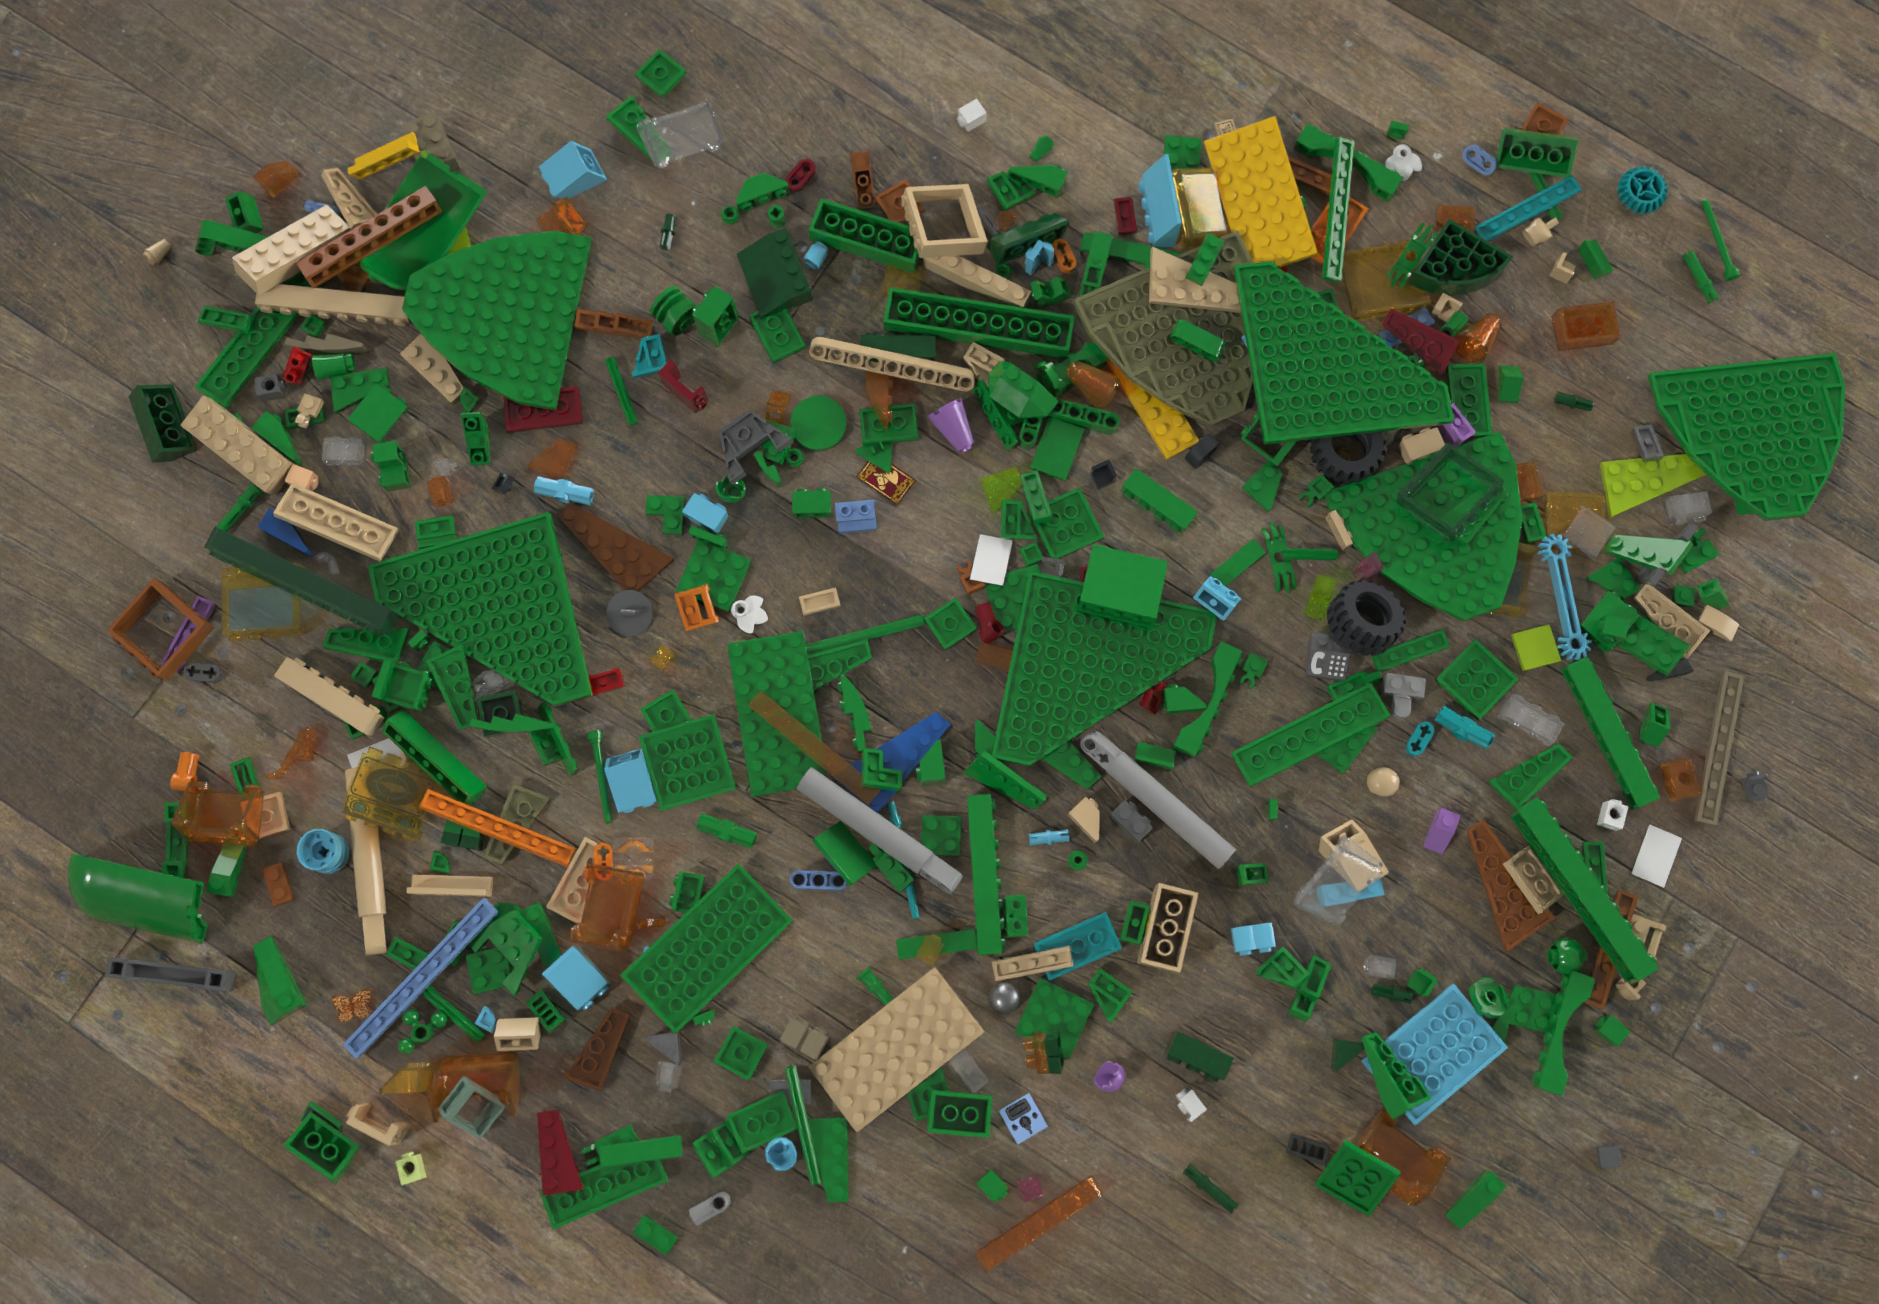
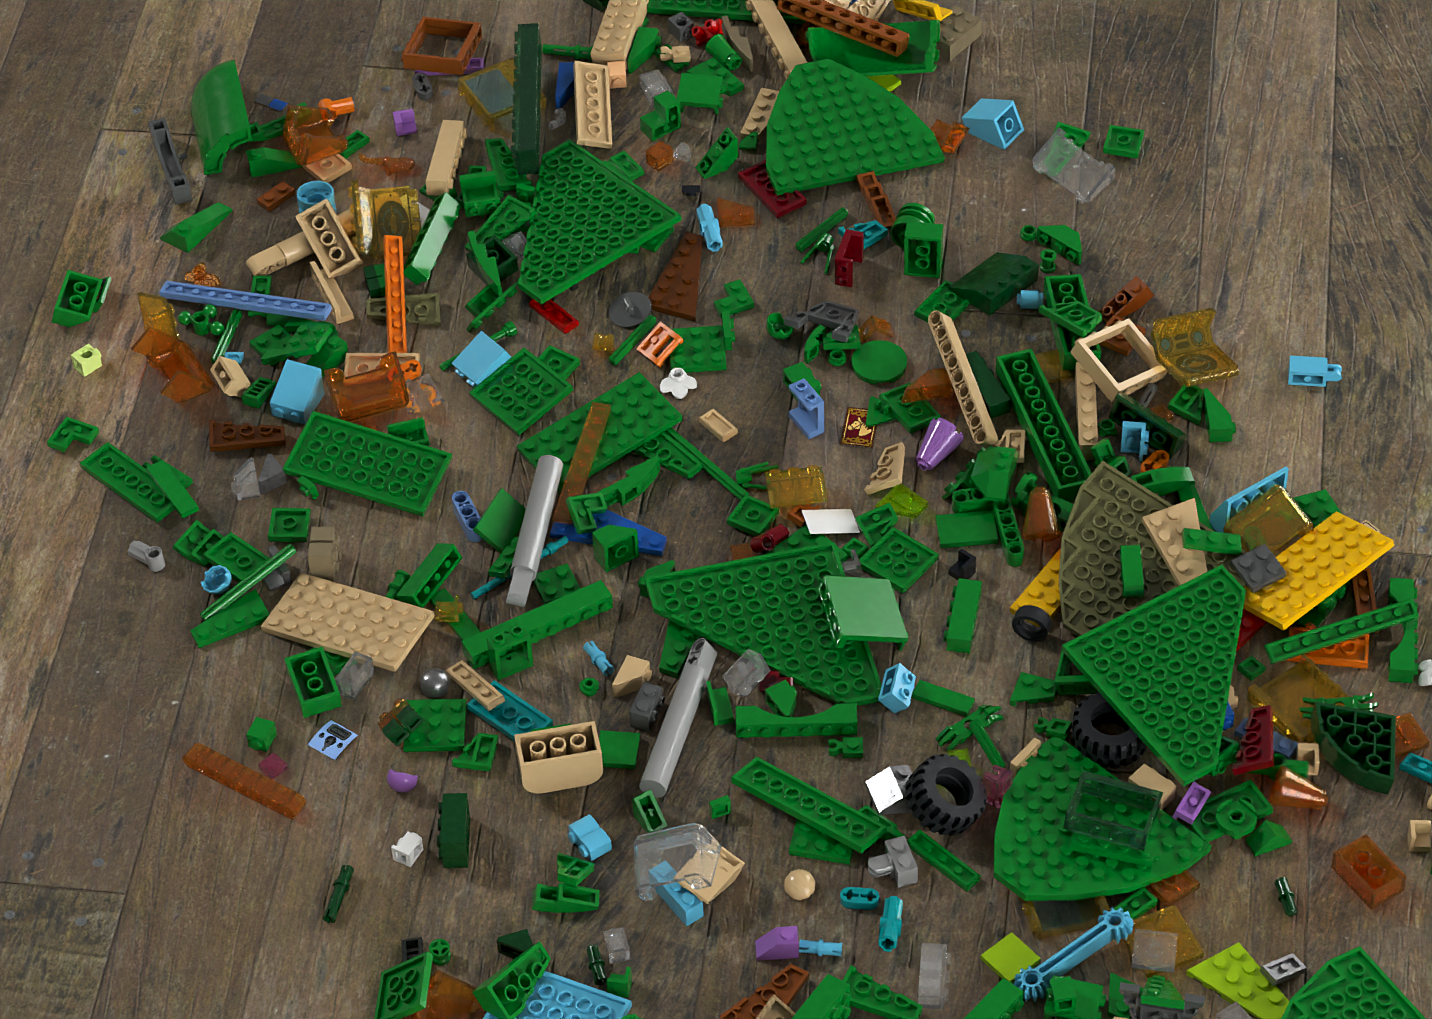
camera: 65 degrees right, 30 degrees down
(132, 833) = (271, 102): none -> sticker
(248, 713) = (404, 122): none -> medium lavender panel
(313, 326) = (751, 32): green tile -> none
(389, 861) = (329, 239): none -> tan slope
(390, 1136) = (111, 313): tan panel -> none
(440, 863) = (347, 281): green tile -> none
(458, 1098) = (140, 365): sand green window -> none
(500, 1221) = (72, 430): none -> green plate
(557, 1163) = (134, 443): dark red wing -> none
(644, 399) = (823, 244): none -> green plant
(655, 1235) = (106, 532): green plate -> none
(668, 231) = (983, 201): dark green axle -> none
(670, 628) = (632, 340): none -> green axle
(705, 513) = (747, 320): medium azure brick -> none
(726, 831) = (476, 441): green piece -> none
(799, 176) = (1098, 262): dark red plate -> none
(879, 949) = (430, 575): none -> green brick
(881, 232) = (1073, 316): none -> green wing
(899, 608) = (744, 475): none -> green plant
(943, 571) = (795, 486): none -> clear yellow slope
(957, 479) = (889, 470): none -> tan wing
(965, 157) = (1187, 348): none -> clear yellow hinge
(971, 115) = (1240, 349): white brick -> none
(1001, 778) = (630, 602): green wing -> none
(1027, 72) = (1312, 371): none -> medium azure brick
(1036, 497) = (908, 527): green tile -> none
(1042, 147) = (1246, 408): green cone -> none
(1125, 216) = (1224, 490): dark red plate -> none
(1142, 718) = (746, 673): none -> clear brick
(1161, 866) = (619, 749): none -> green tile
(1245, 237) = (1258, 568): none -> dark grey plate
(1321, 1125) = (441, 952): none -> green wheel
(1458, 795) = (820, 947): none -> medium azure pin
(1476, 679) = (946, 919): green plate -> none
(1492, 388) = (1232, 827): none -> green plate

